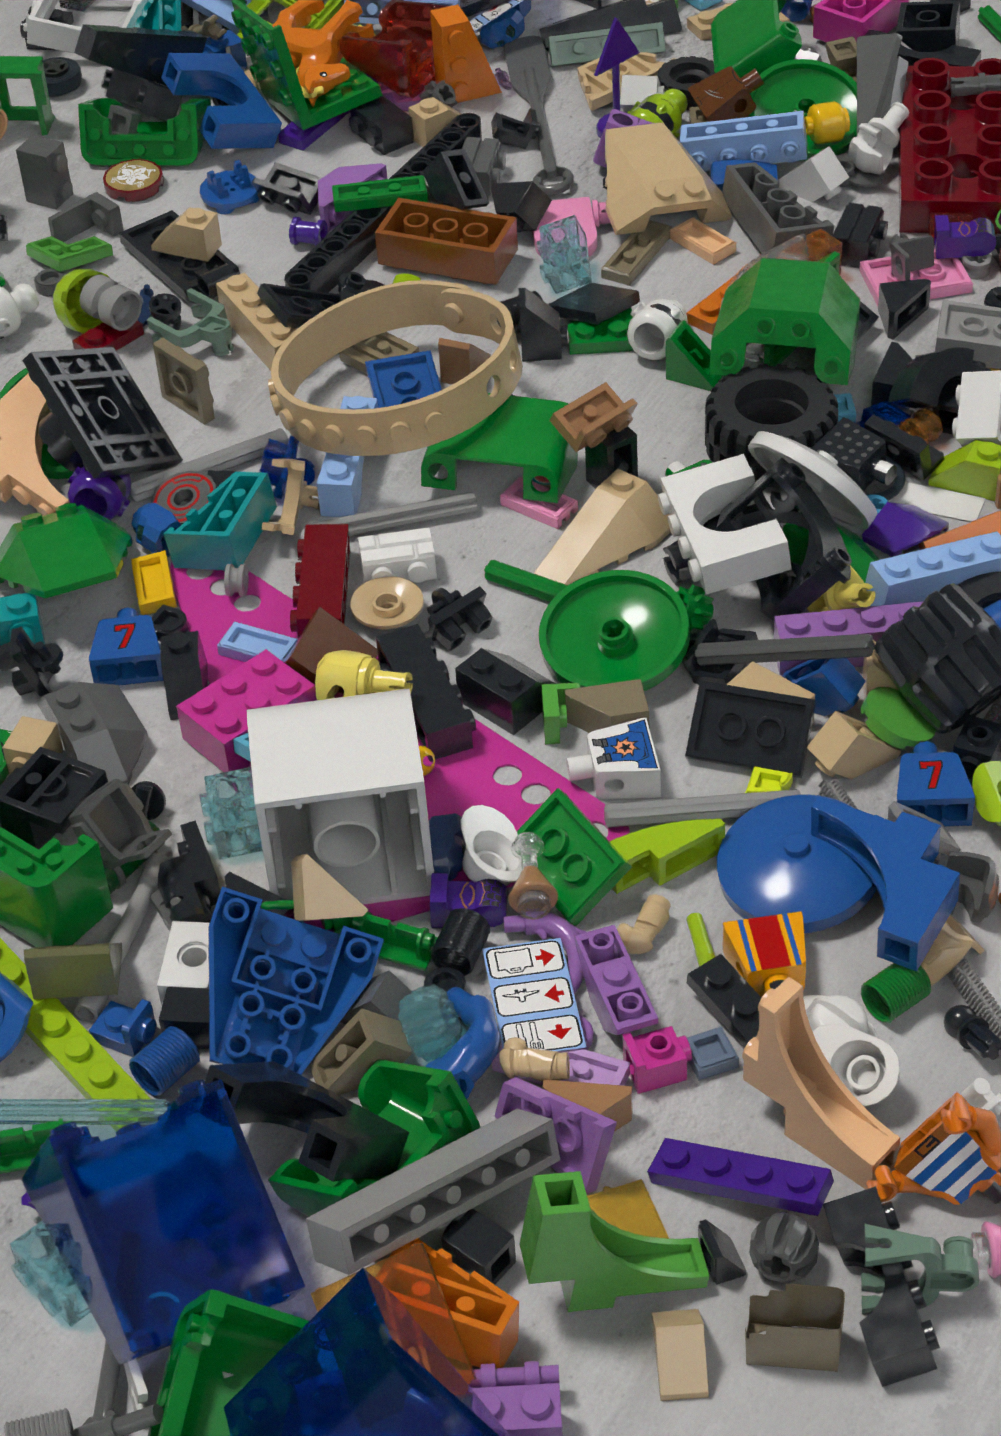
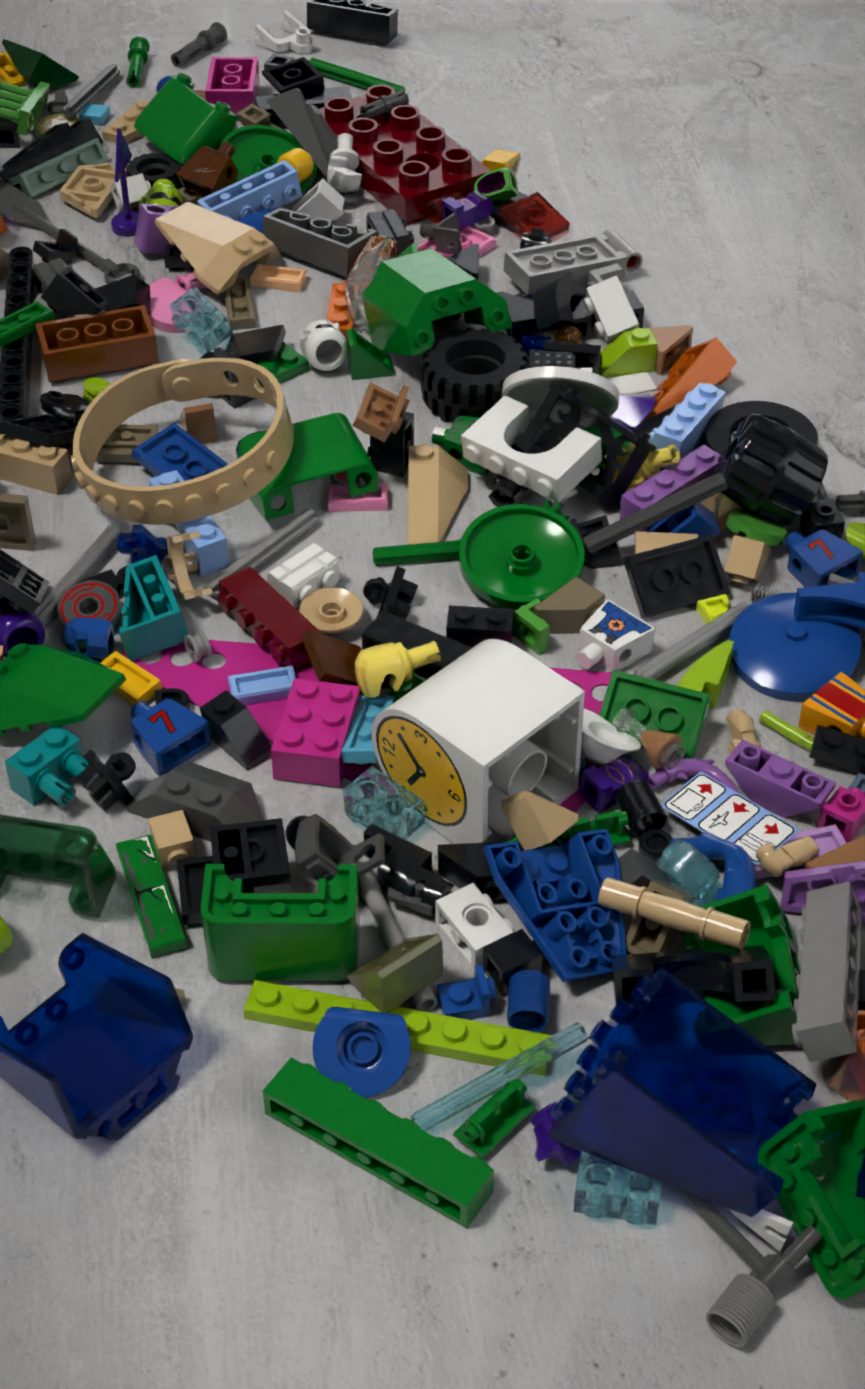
camera: 40 degrees left, 0 degrees up
(363, 1075) = (674, 913): none -> tan piece

